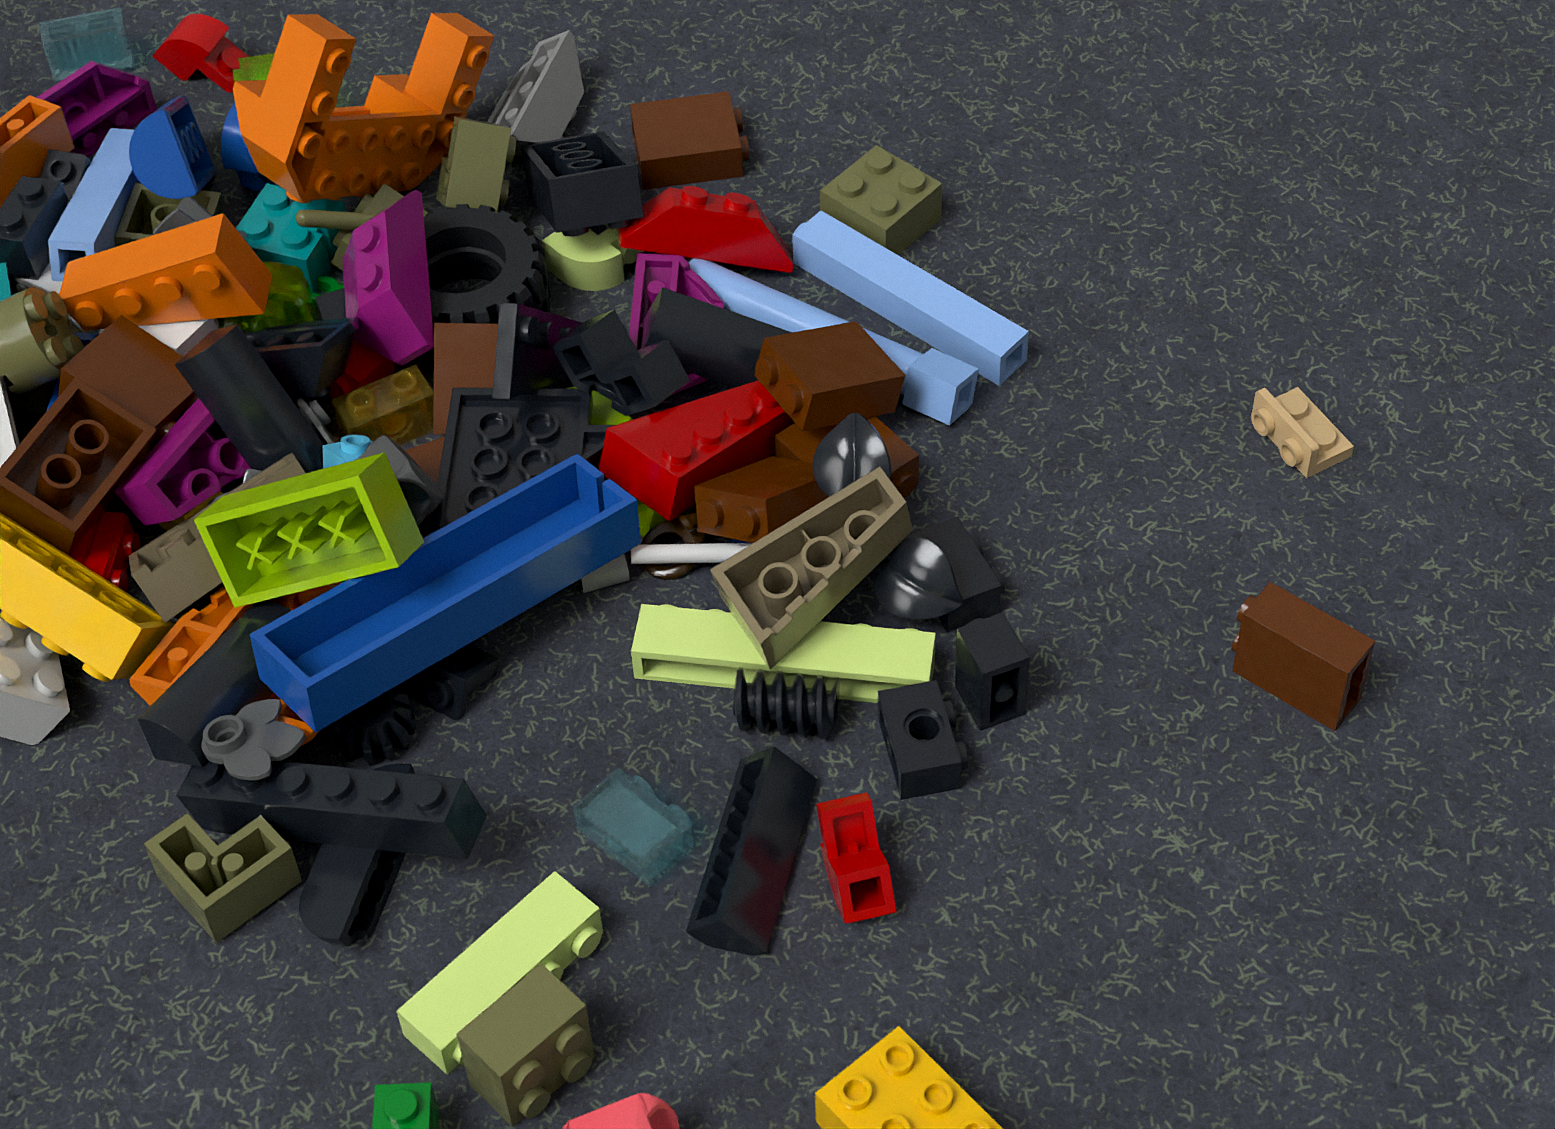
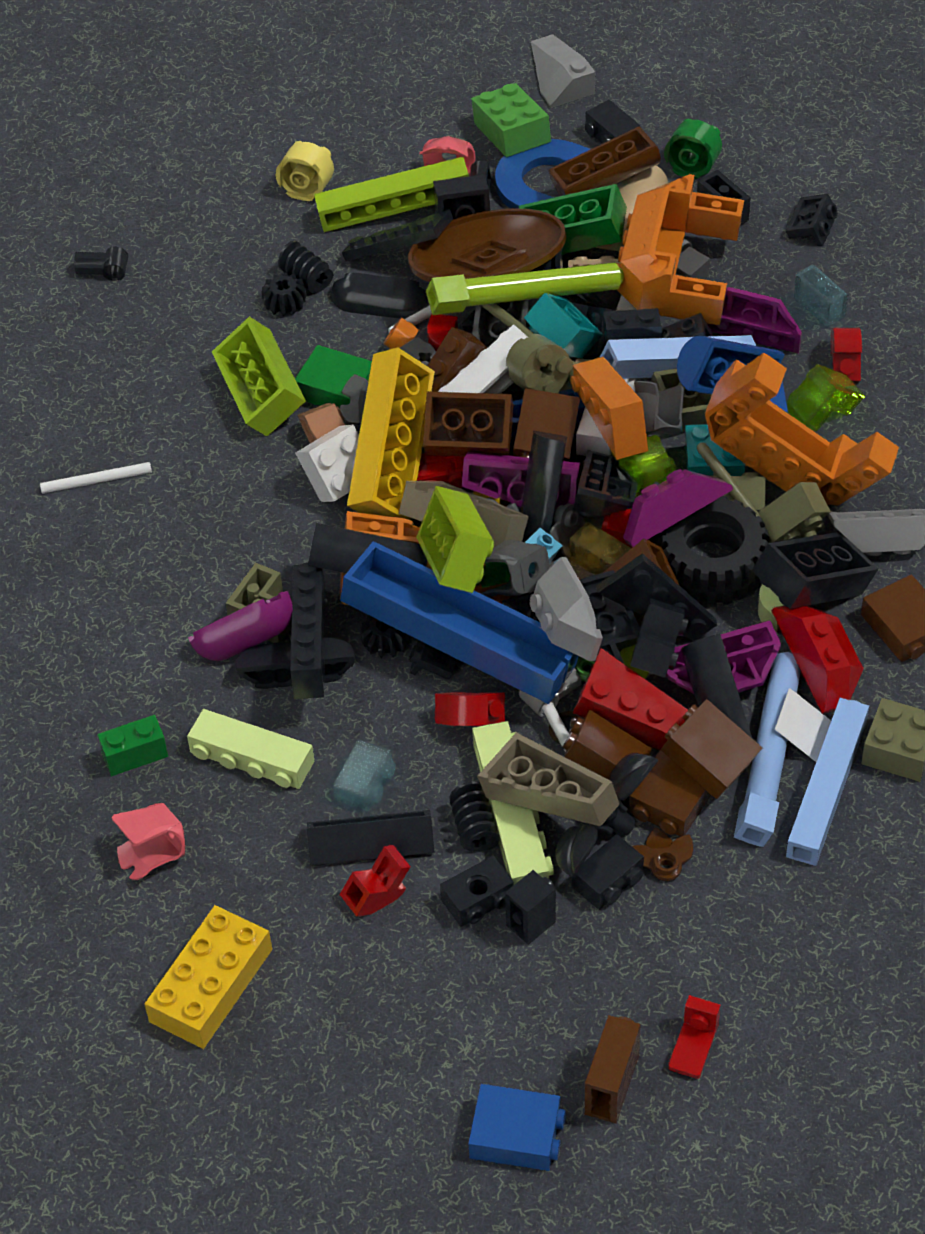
camera: 70 degrees right, 0 degrees up
(251, 740) = (323, 575): dark grey plate -> none
(265, 906) = (243, 628): none -> magenta brick
(519, 434) = (566, 611): none -> light grey wedge
(527, 1045) = (202, 771): olive brick -> none
(588, 651) = (469, 708): none -> red brick
(810, 290) = (802, 724): none -> white sticker
(944, 500) = (663, 851): none -> reddish brown plate
(1258, 562) = (696, 1037): none -> red bracket
(1299, 431) = (821, 1033): tan bracket -> none
(1346, 810) = (516, 1127): none -> blue brick

